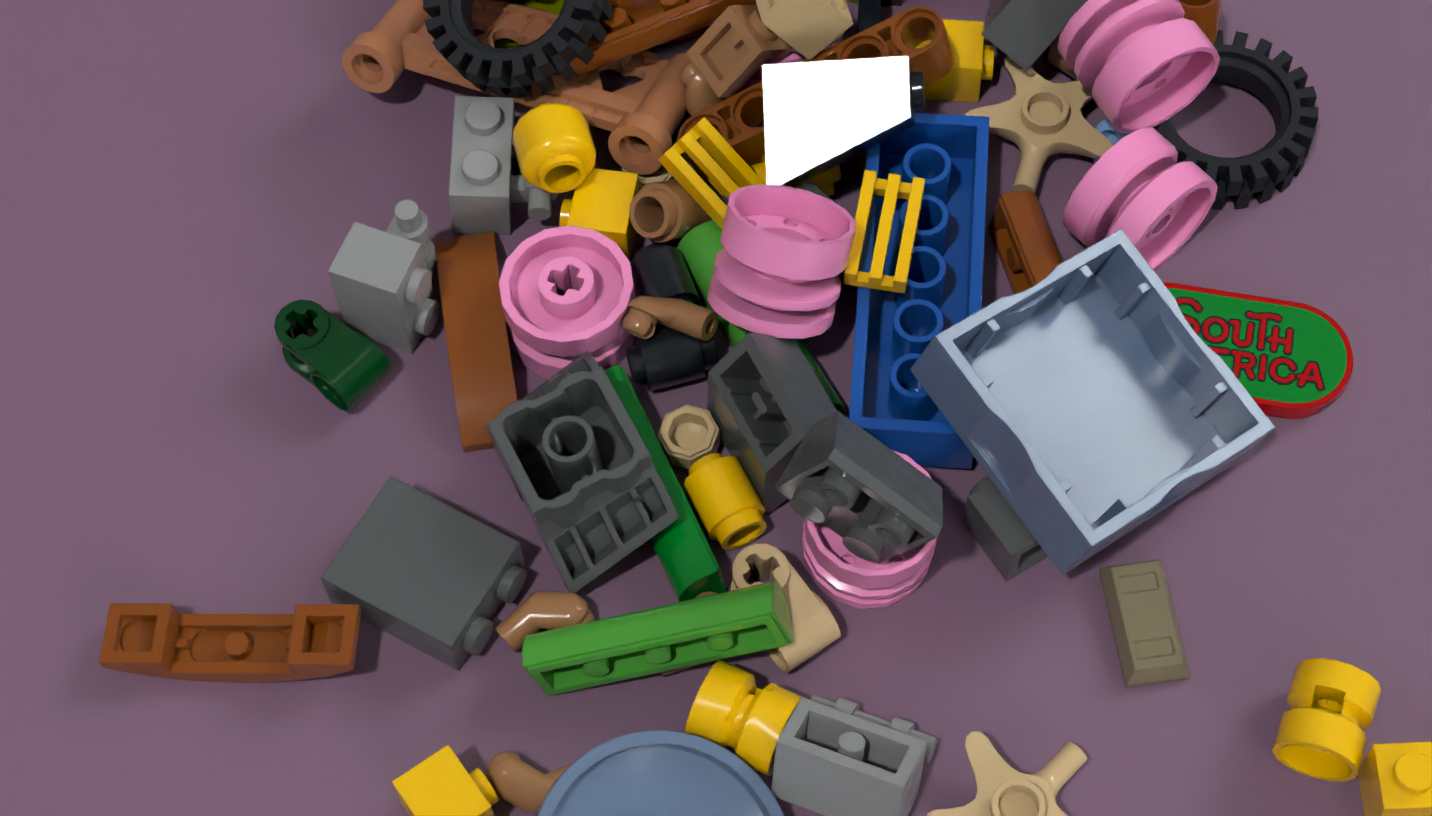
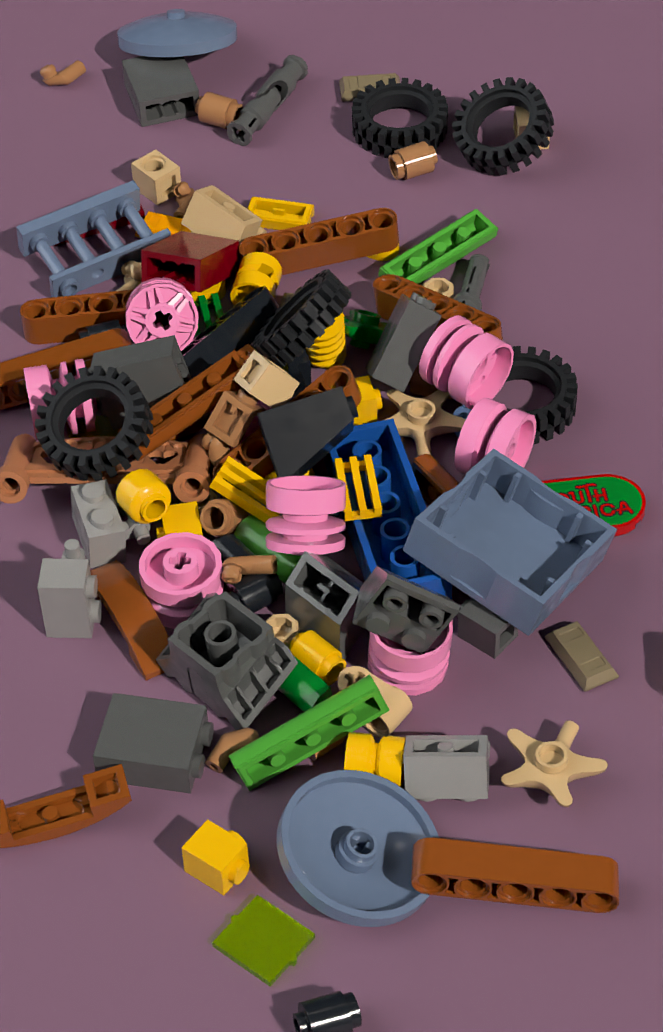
camera: 20 degrees left, 15 degrees down
(329, 353) = (48, 648): dark green piece -> none
(520, 782) = (257, 835): medium nougat arm -> none

